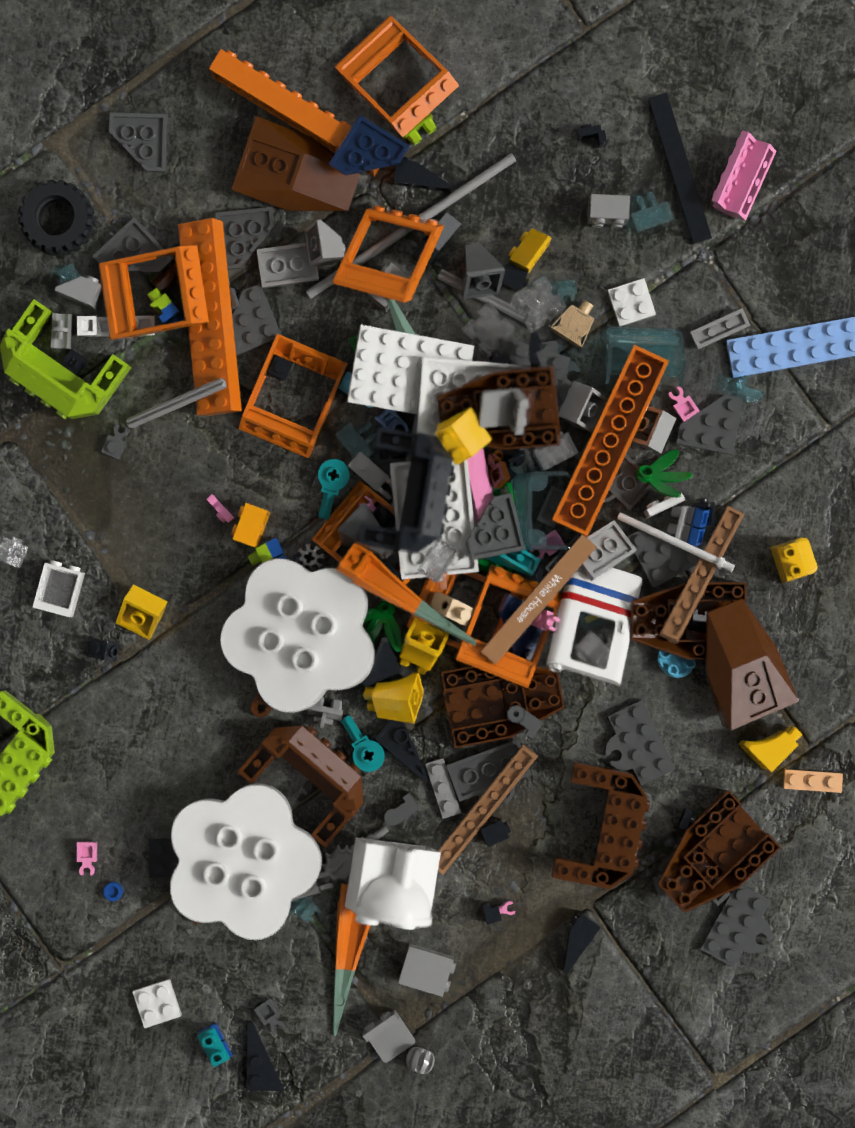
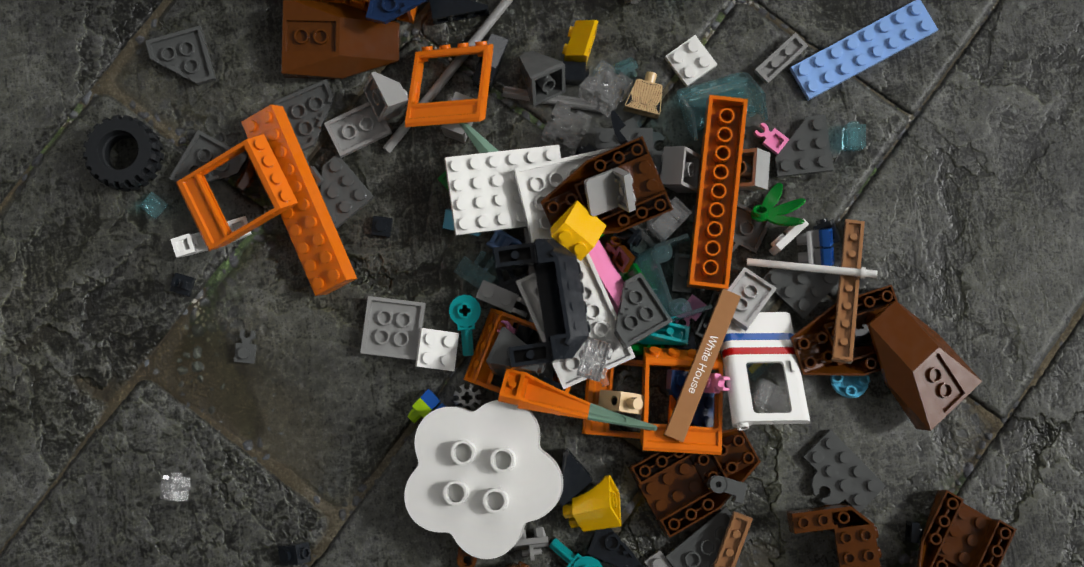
camera: 25 degrees left, 5 degrees down
(50, 379) = (160, 307): lime wedge -> none
(59, 587) = (232, 508): window -> none
(61, 331) = (160, 258): light grey hips -> none
(83, 291) = (168, 213): light grey slope -> none
(141, 612) = (320, 504): yellow slope -> none
(164, 305) = (251, 203): hips -> none
(176, 403) = (290, 291): light grey axle -> none
(223, 514) = (370, 382): bright pink plate -> none
(251, 525) = (400, 384): light orange brick -> none
(260, 469) = (392, 327): none -> light grey plate
(277, 429) = (394, 284): orange window -> none
(295, 503) = (437, 349): none -> white plate
(383, 617) = (557, 431): green plant -> none
(422, 645) = (605, 447): yellow hips -> none
(751, 395) = (830, 108): clear light blue bracket -> none
(763, 428) = (854, 136): none -> clear light blue brick
(773, 749) = (973, 436): yellow hips -> none
(794, 559) = (925, 249): yellow hips -> none
(812, 780) = (1018, 453): light nougat plate -> none

